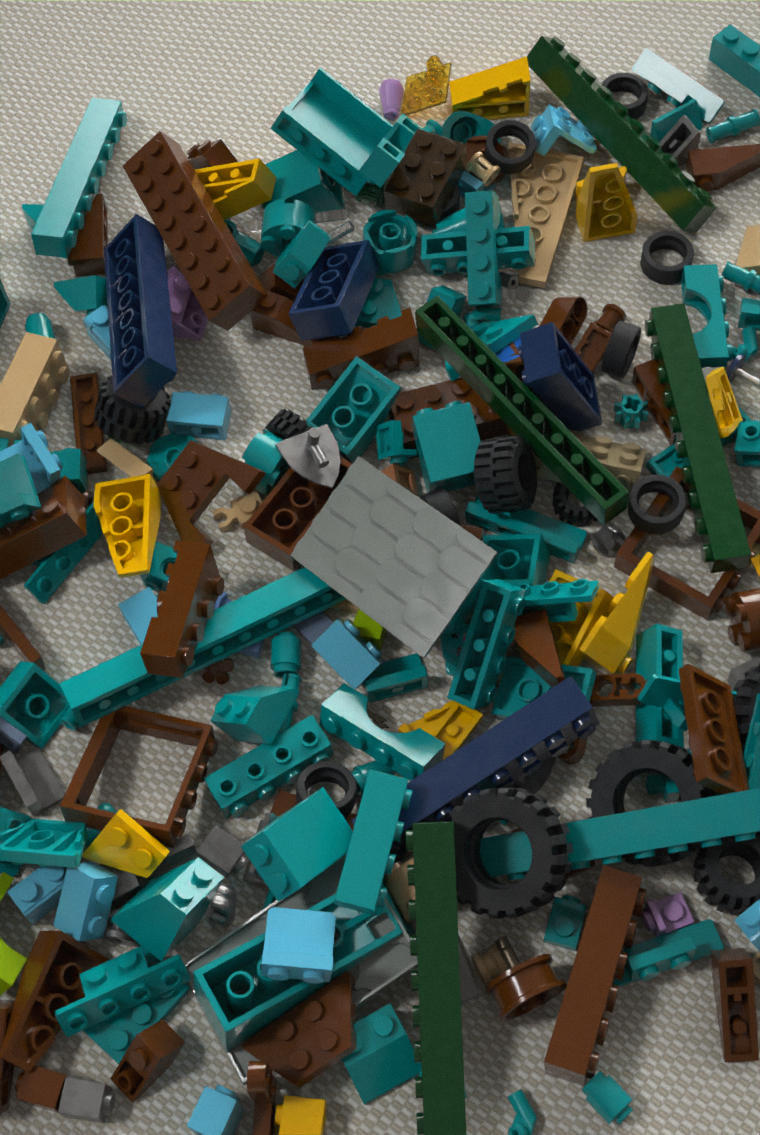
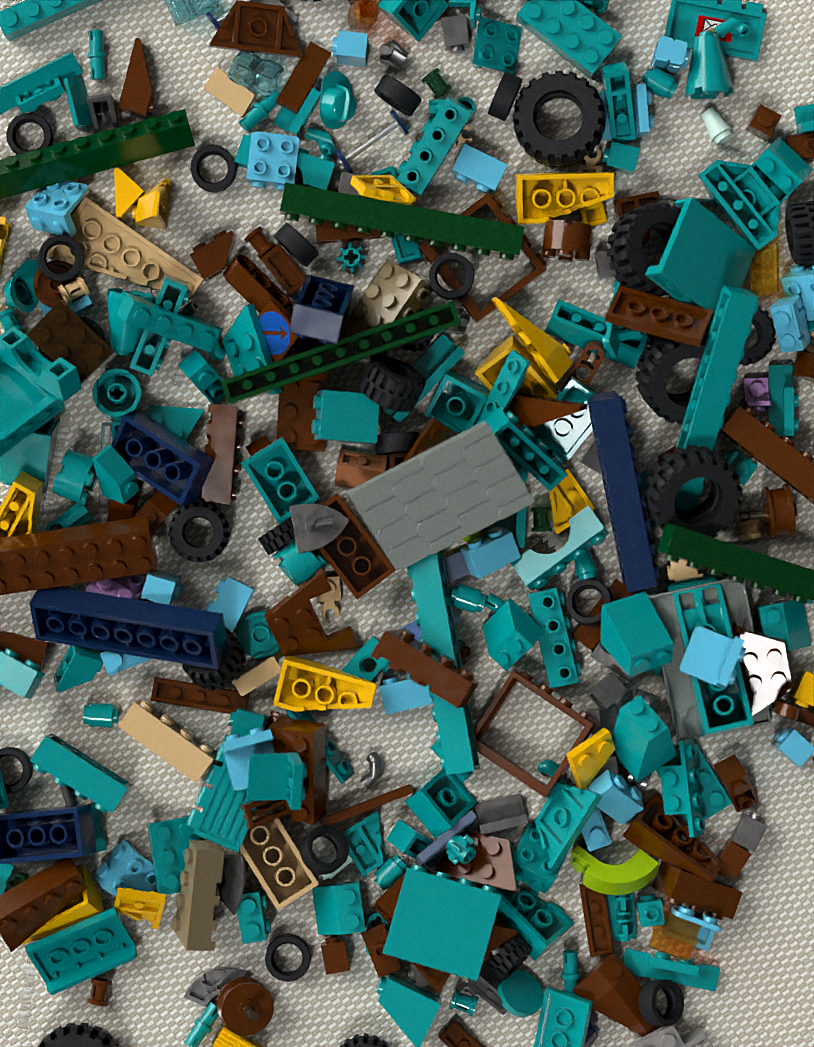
camera: 75 degrees left, 25 degrees up
(51, 623) = (376, 769): none -> flat silver arm
(195, 338) = (162, 587): none -> medium azure brick
(263, 342) = (183, 517): none -> black tyre
(371, 842) = (656, 583): teal brick -> none
(390, 443) = (321, 460): teal bracket -> none
(410, 706) = (541, 519): none -> clear green bush
(572, 280) = (213, 257): none -> reddish brown slope
(705, 296) = (272, 160): none -> medium azure bracket

